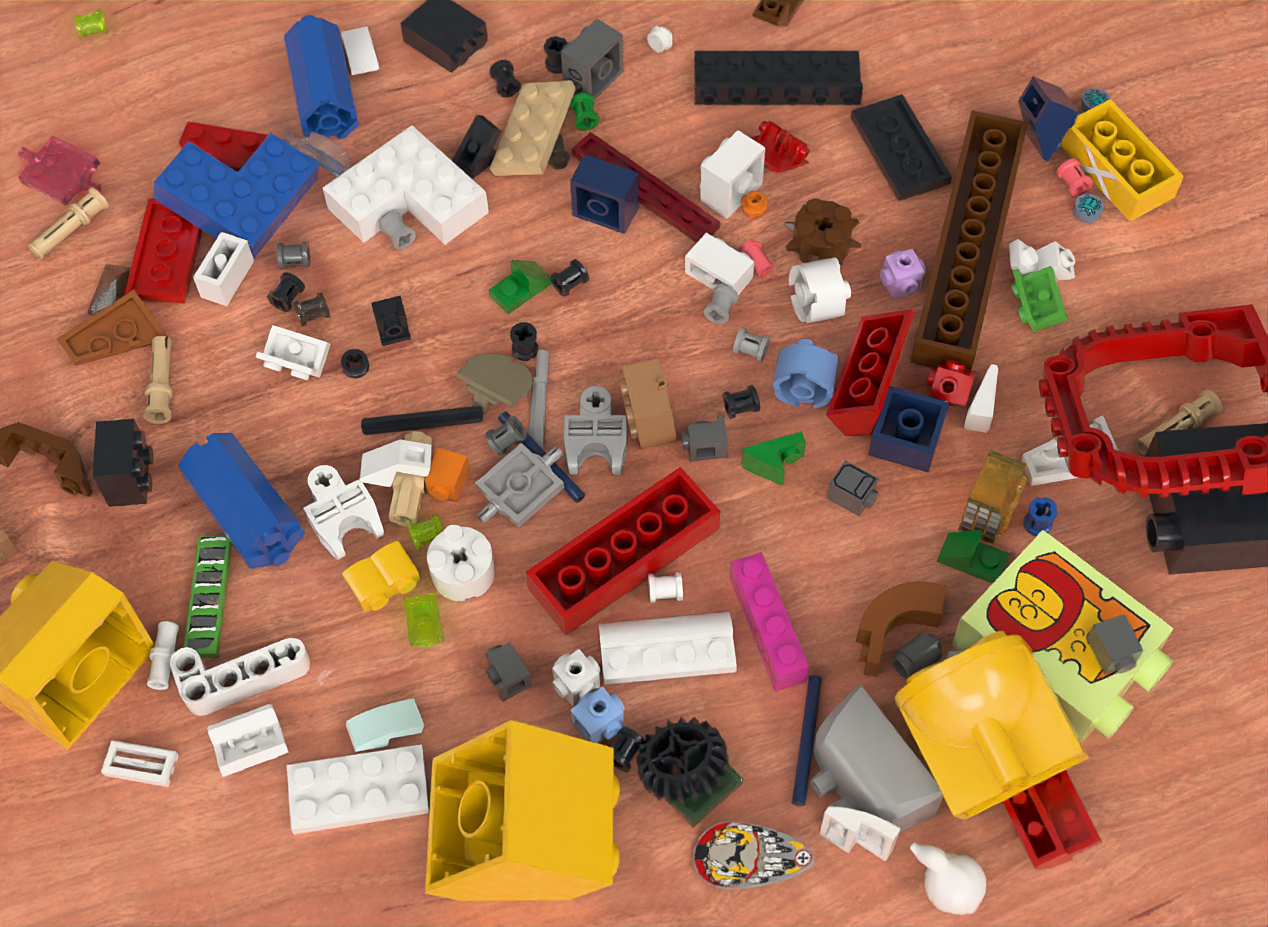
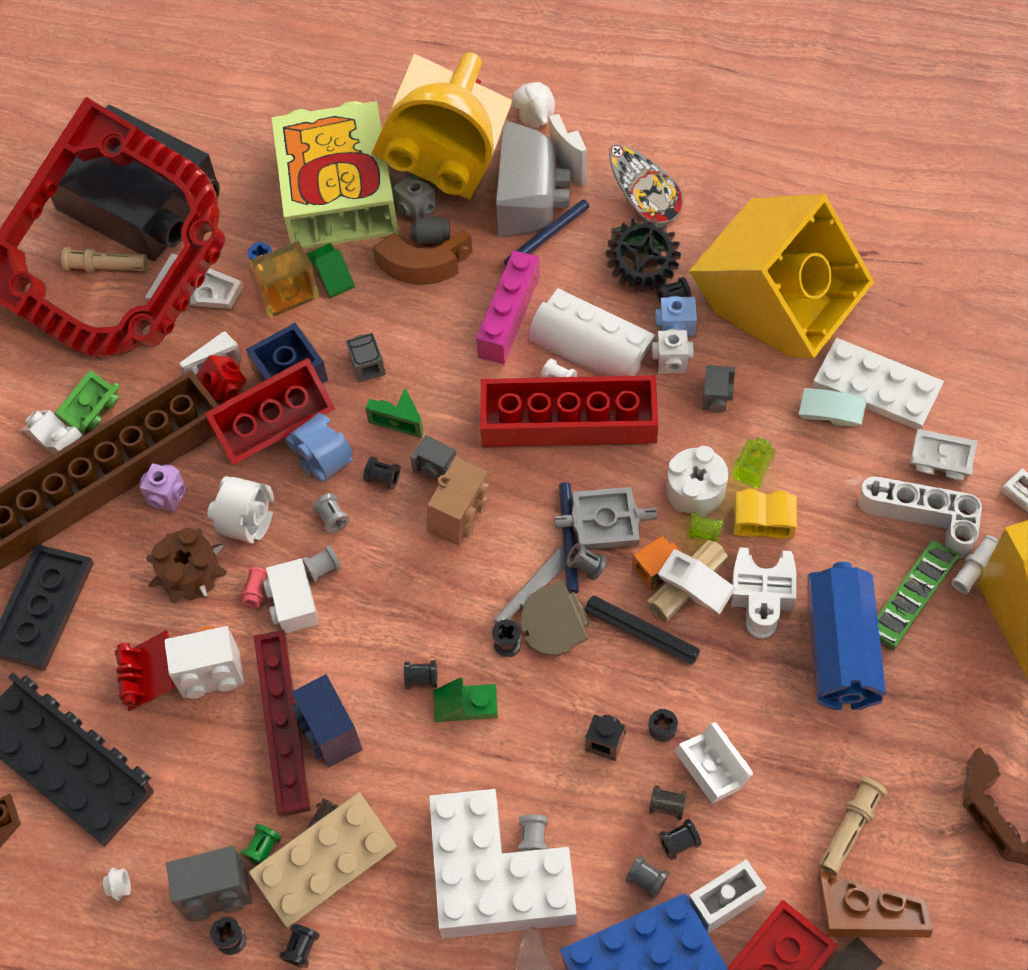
camera: 140 degrees left, 0 degrees up
(122, 462) = (931, 740): black brick -> none
(476, 148) = (393, 872): black slope -> none
(595, 432) = (514, 522): light grey piece -> none
(1115, 645) = (321, 118): dark grey brick -> none

